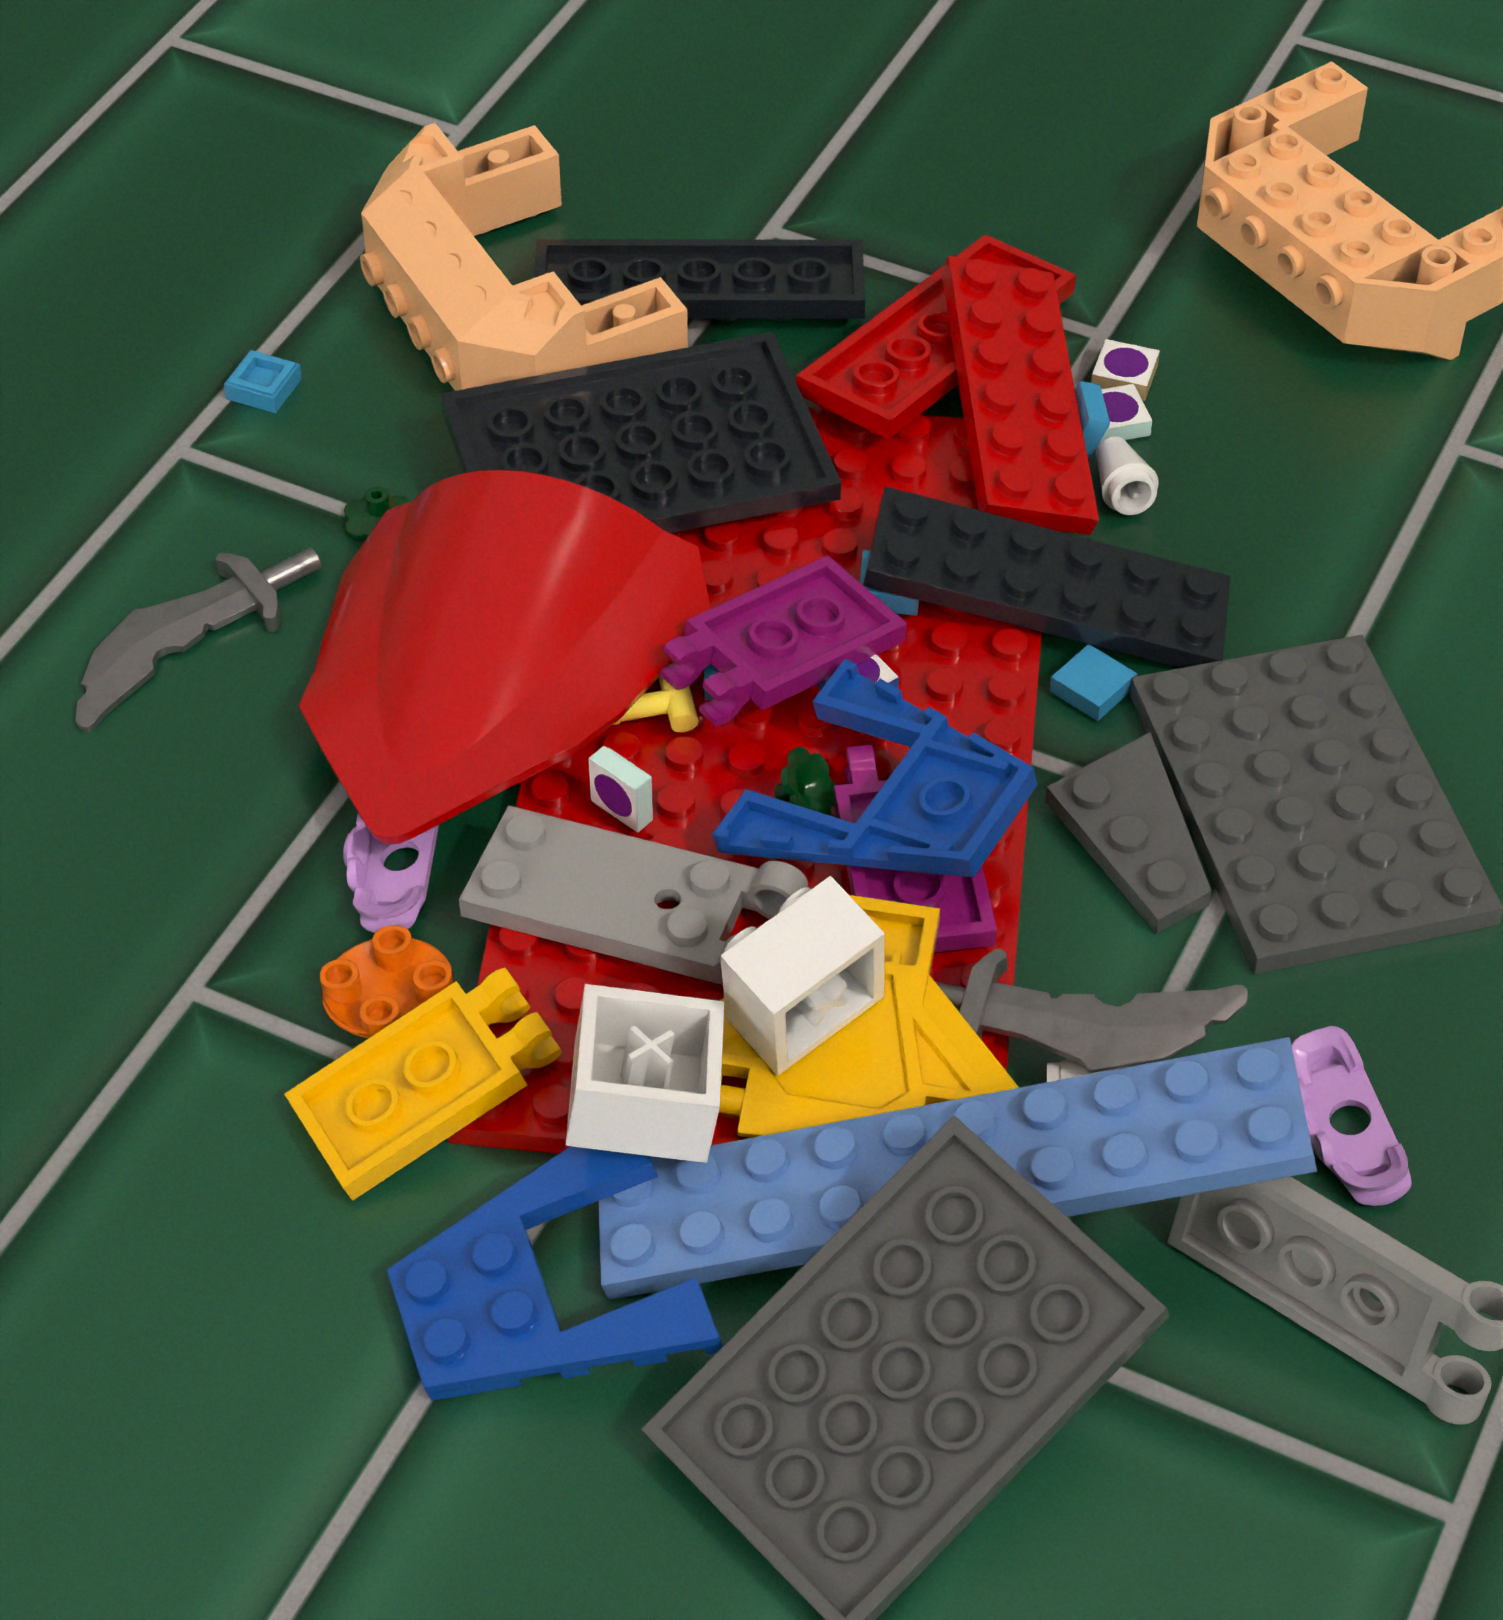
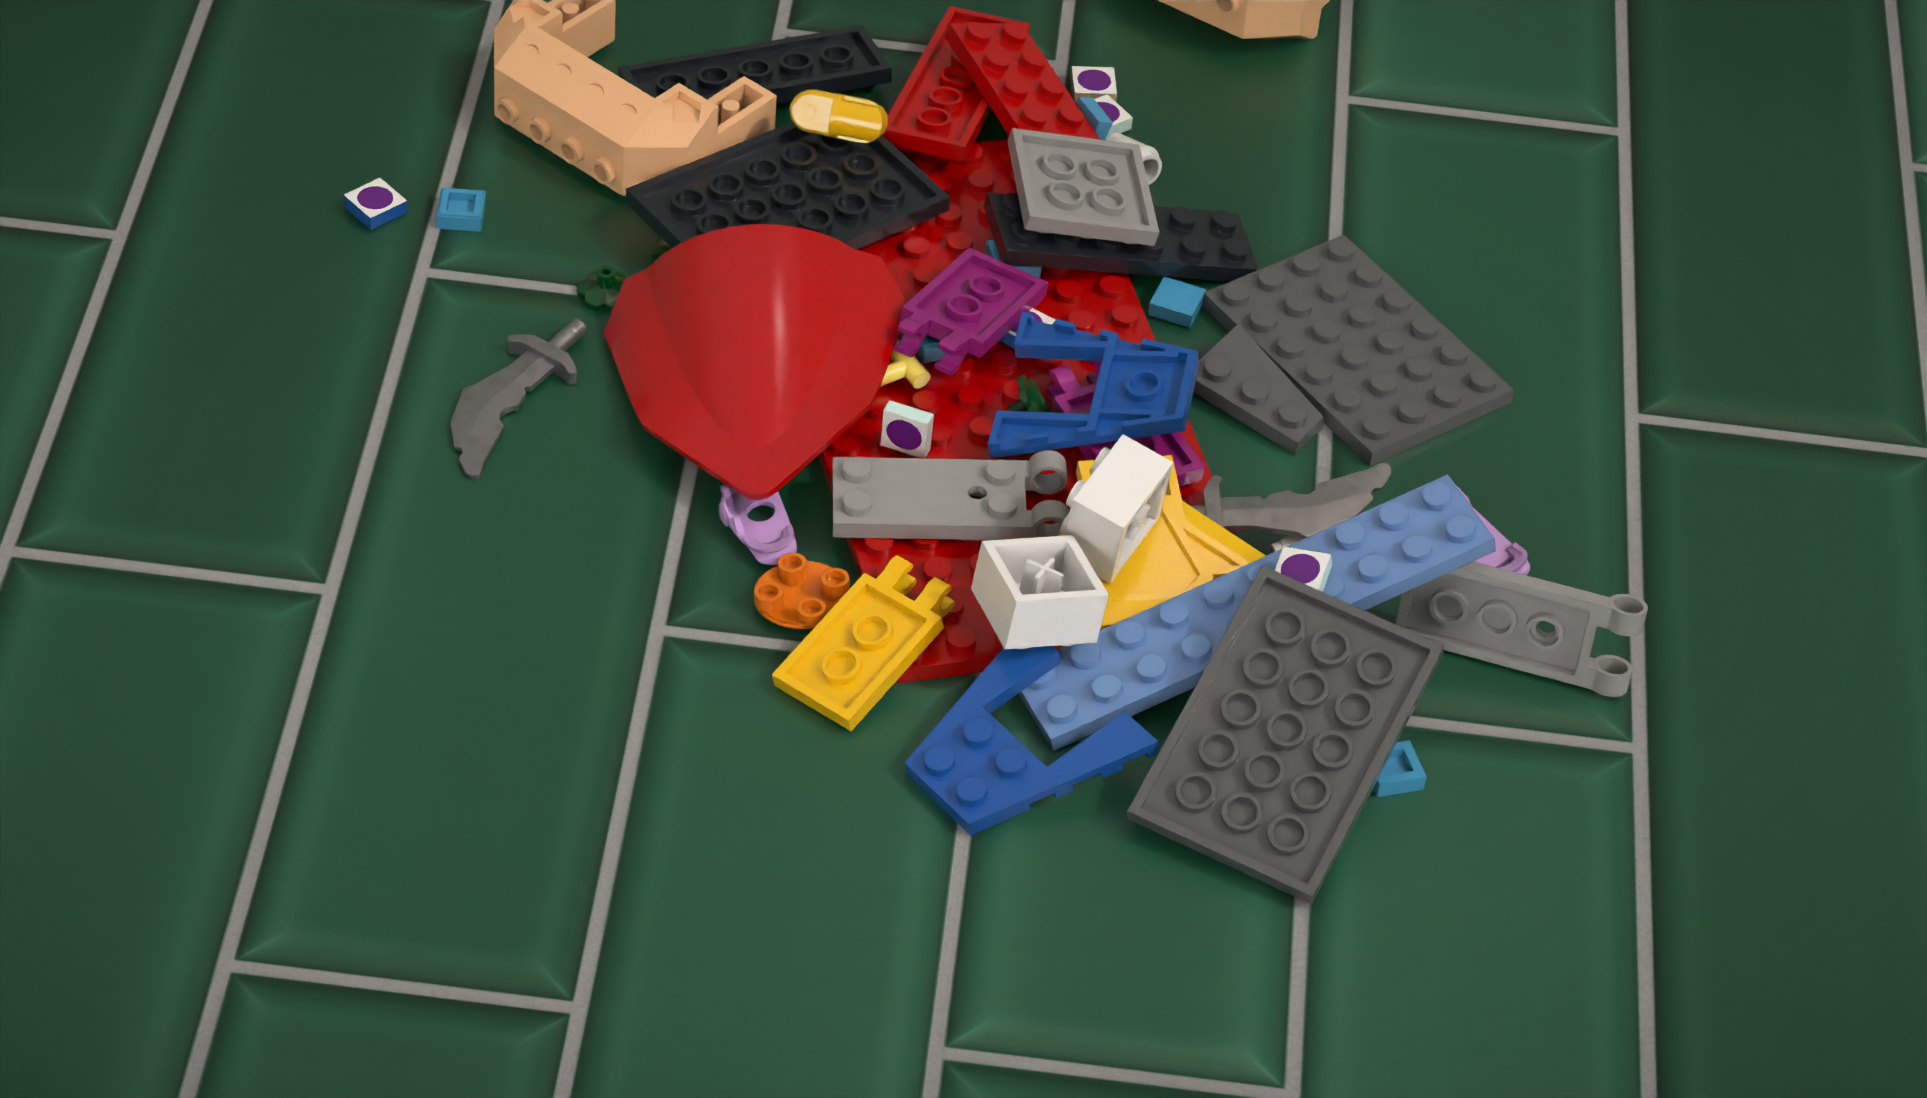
camera: 25 degrees left, 5 degrees down
(167, 355) = (375, 203): none -> tile
(743, 350) = (838, 116): none -> yellow arm
(1006, 504) = (1082, 187): none -> light grey plate
(1021, 1134) = (1305, 566): none -> tile
(1073, 1461) = (1401, 772): none -> dark azure tile

